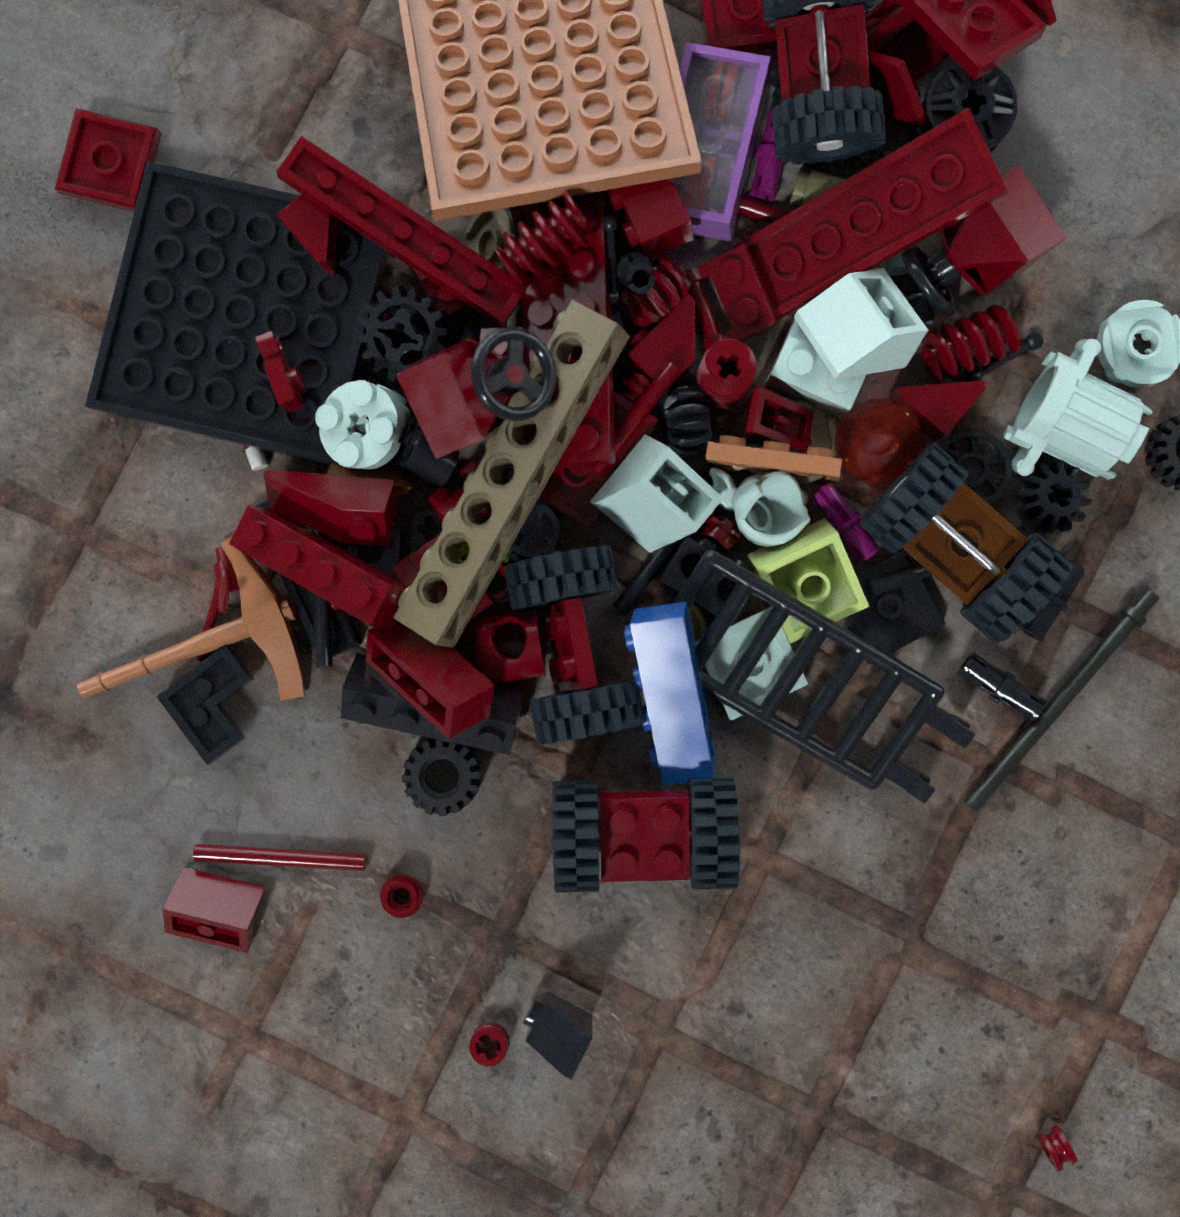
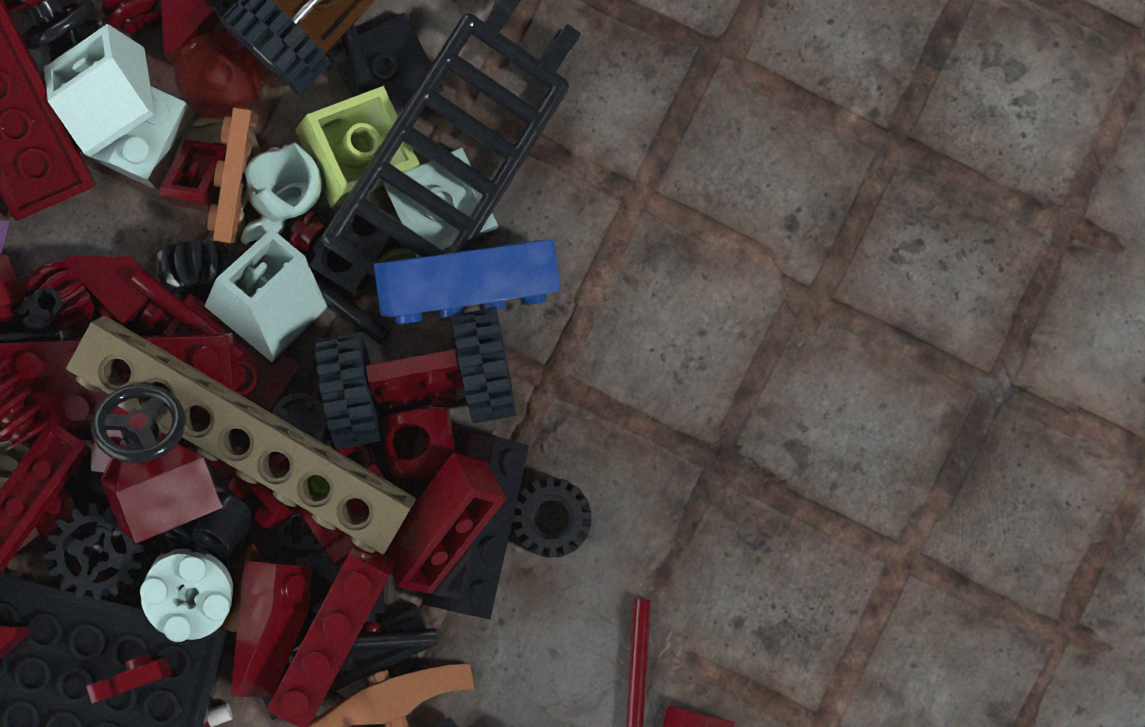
camera: 90 degrees left, 5 degrees down
(390, 902) = (690, 561): dark red plate -> none
(482, 1055) = (839, 478): dark red bush -> none
(559, 1032) = (809, 397): black slope -> none
(646, 835) = (609, 307): plate -> none
(726, 357) = (137, 211): dark red piece -> none
(740, 294) = (65, 211): dark red plate -> none
(845, 522) = (290, 115): magenta axle -> none

